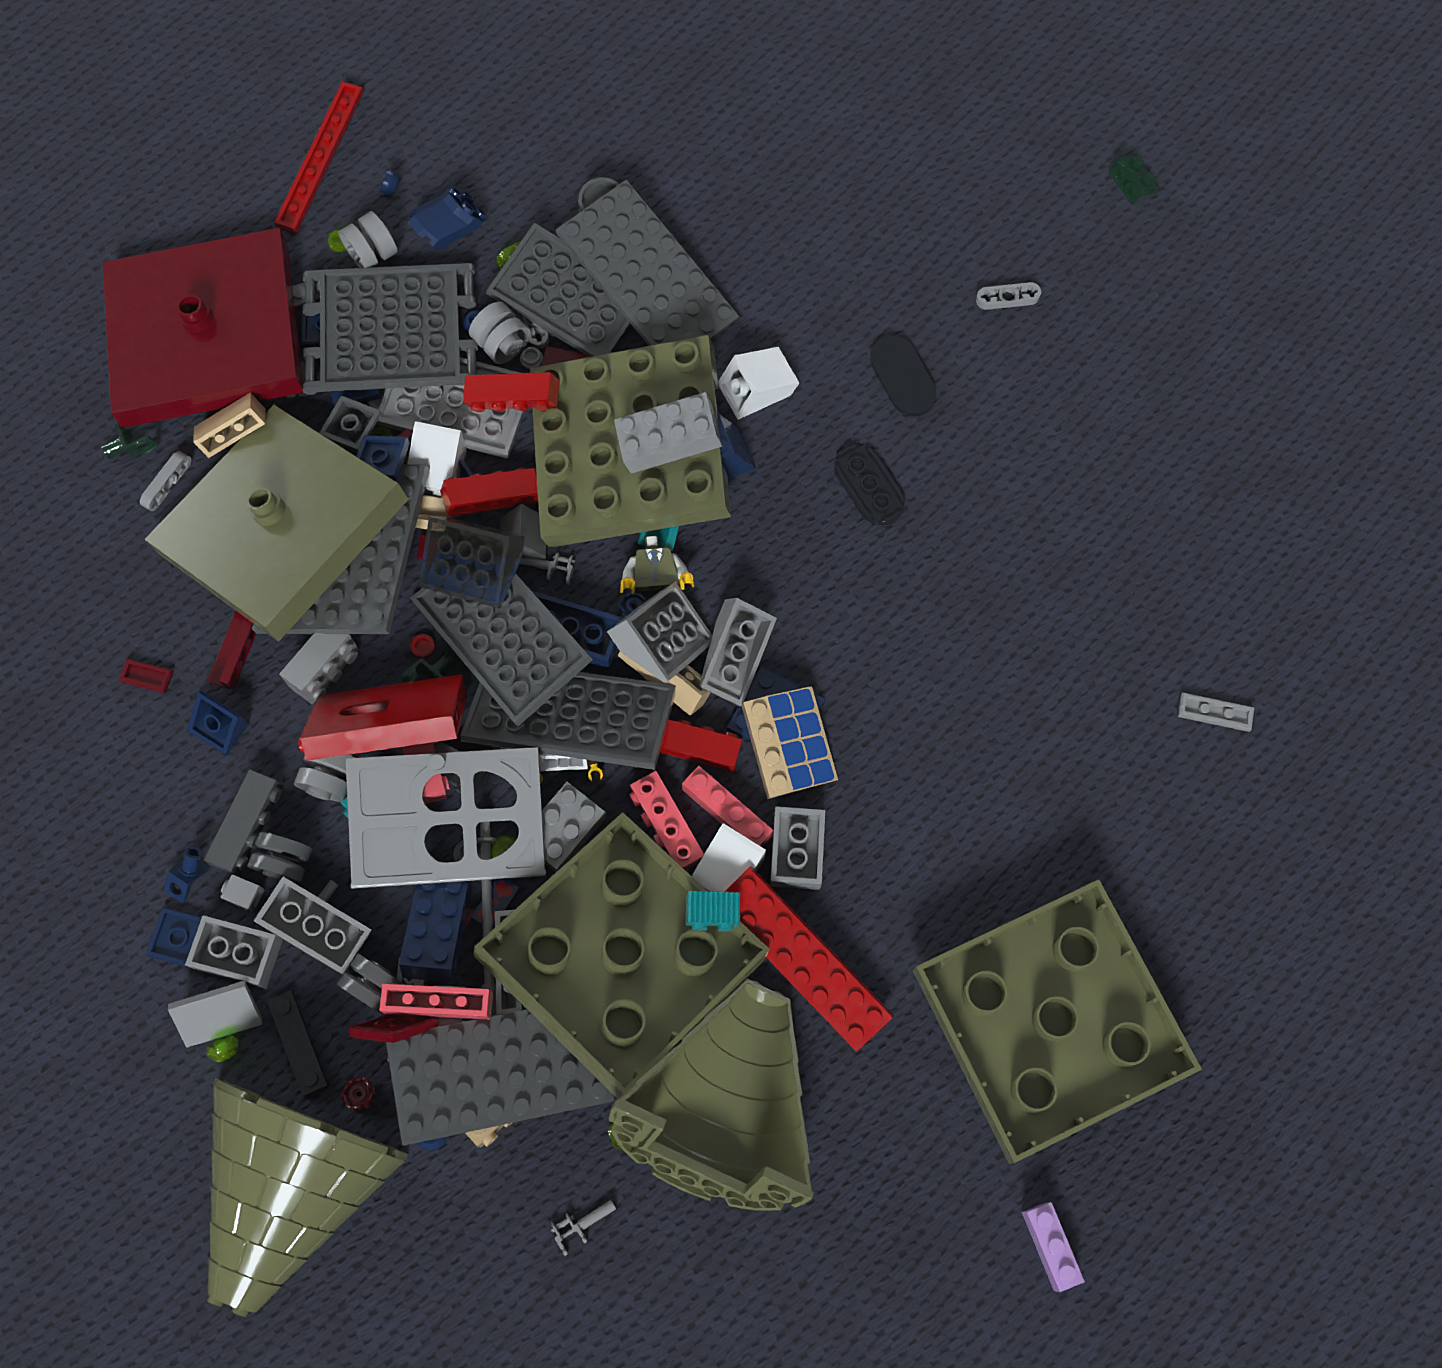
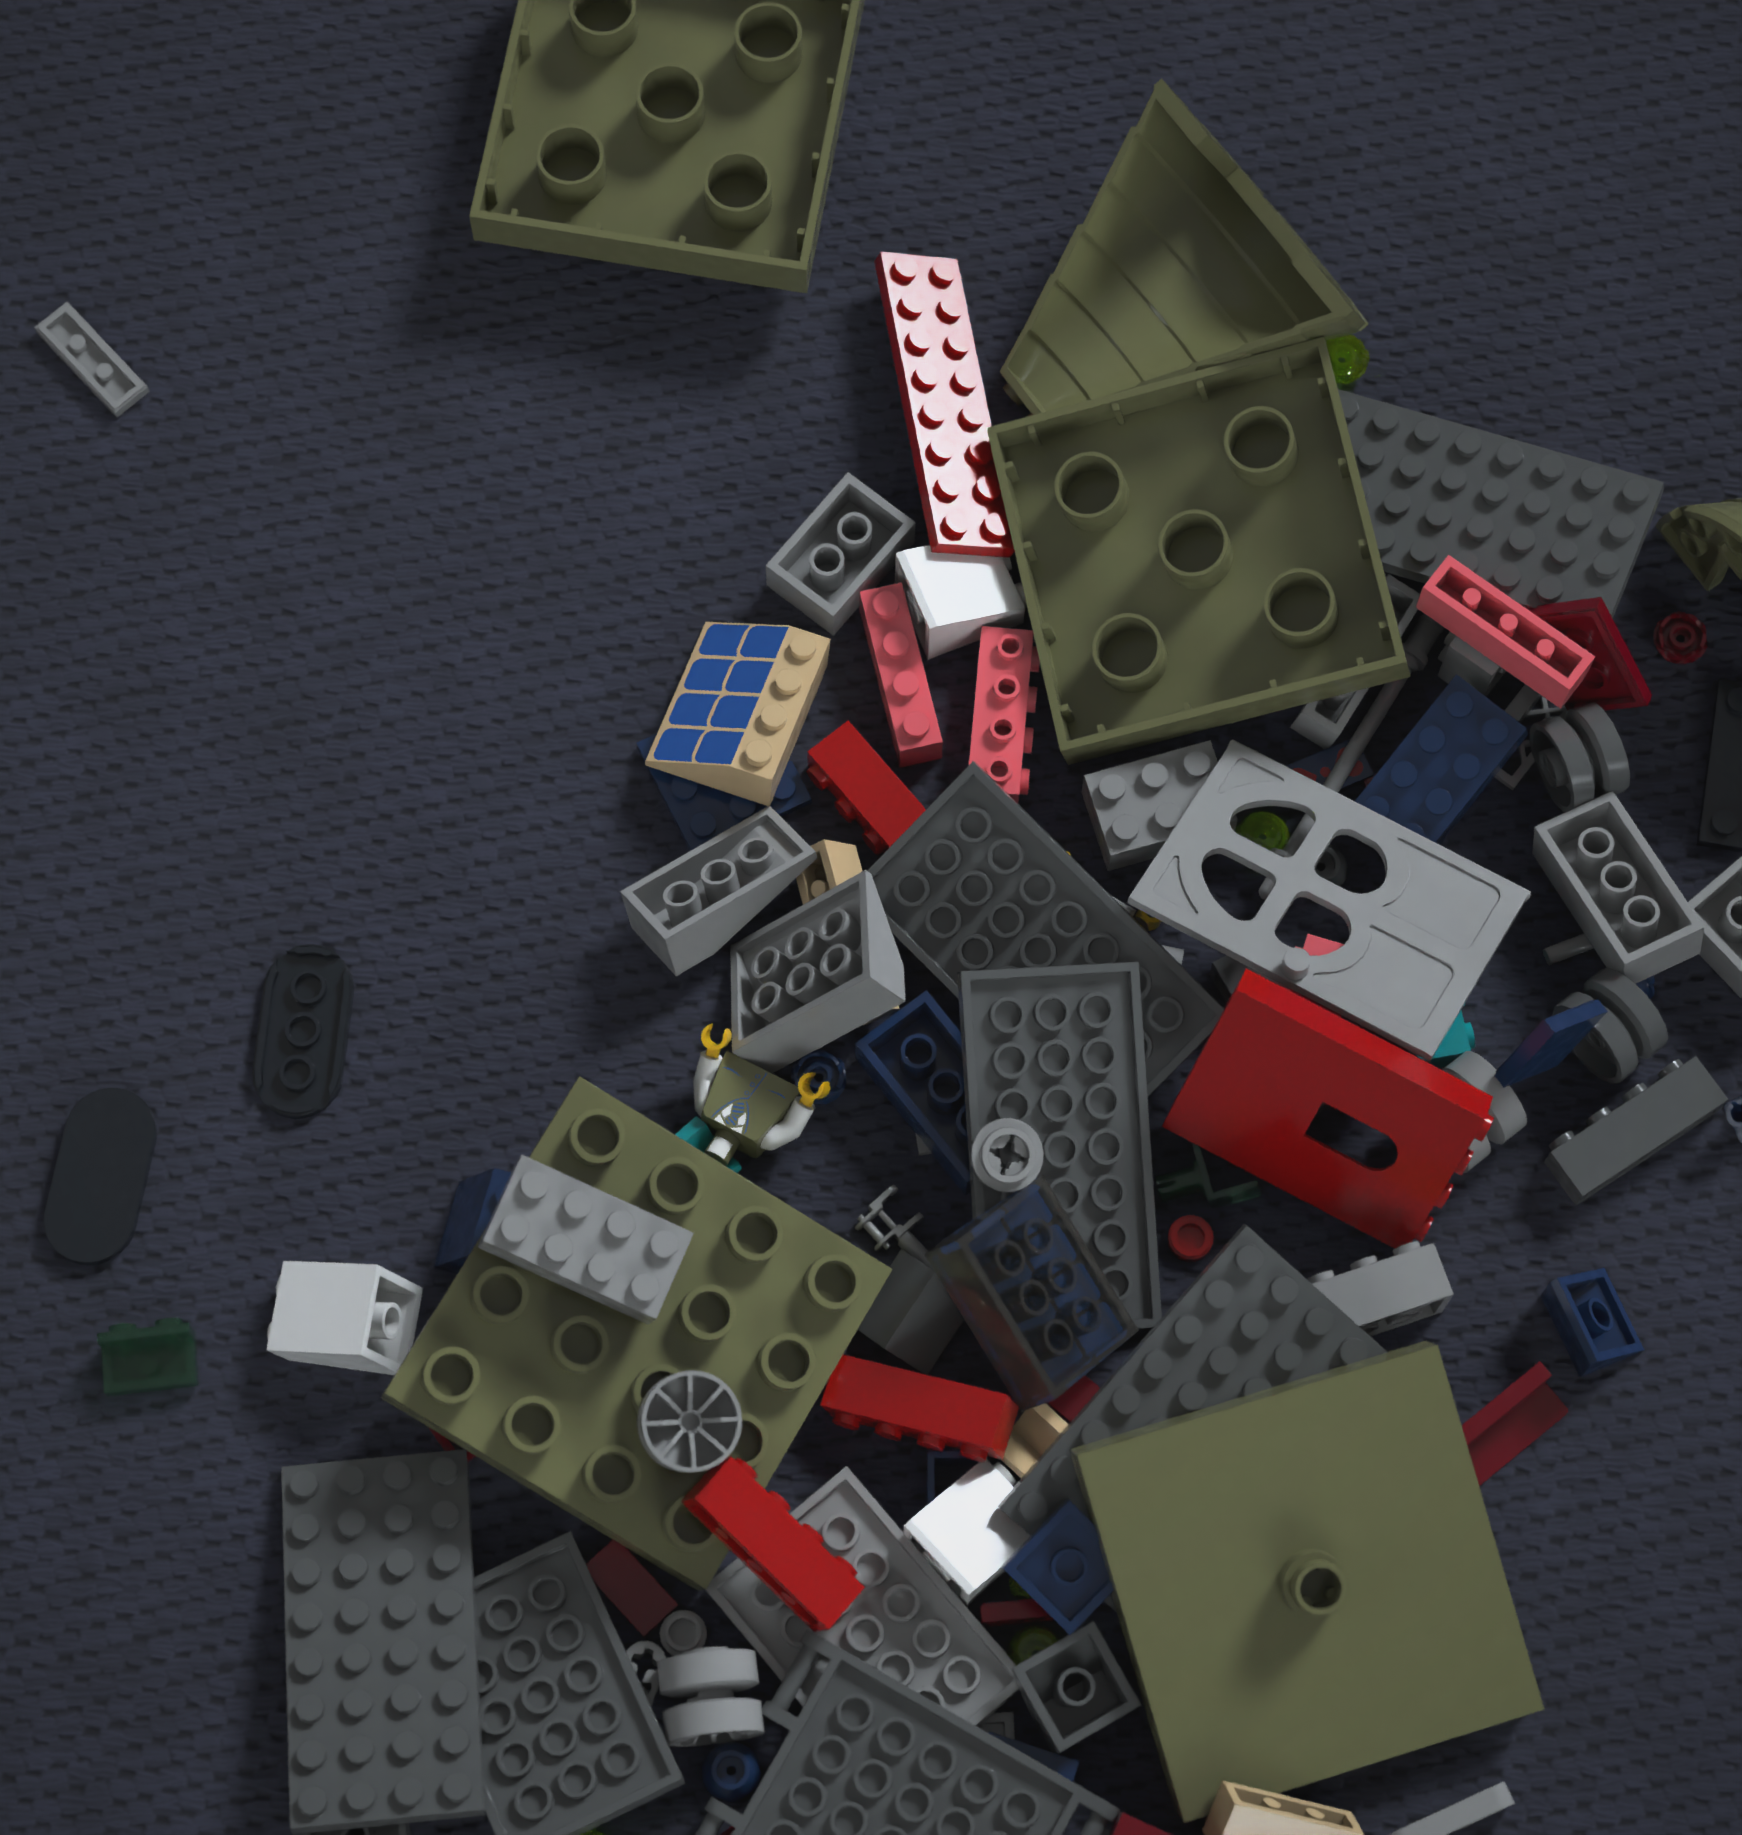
camera: 145 degrees left, 0 degrees up
(146, 676) = (1663, 1484): dark red tile -> none
(241, 893) = (1696, 1023): light grey brick -> none
(296, 812) = (1550, 1042): none -> dark blue tile
(508, 600) = (1024, 1143): none -> light grey gear
(573, 397) = (689, 1421): none -> light grey wheel
(582, 1224) = (1473, 292): light grey piece -> none
(712, 909) = (1032, 514): teal brick -> none
(823, 320) = (148, 1357): none -> clear green bracket

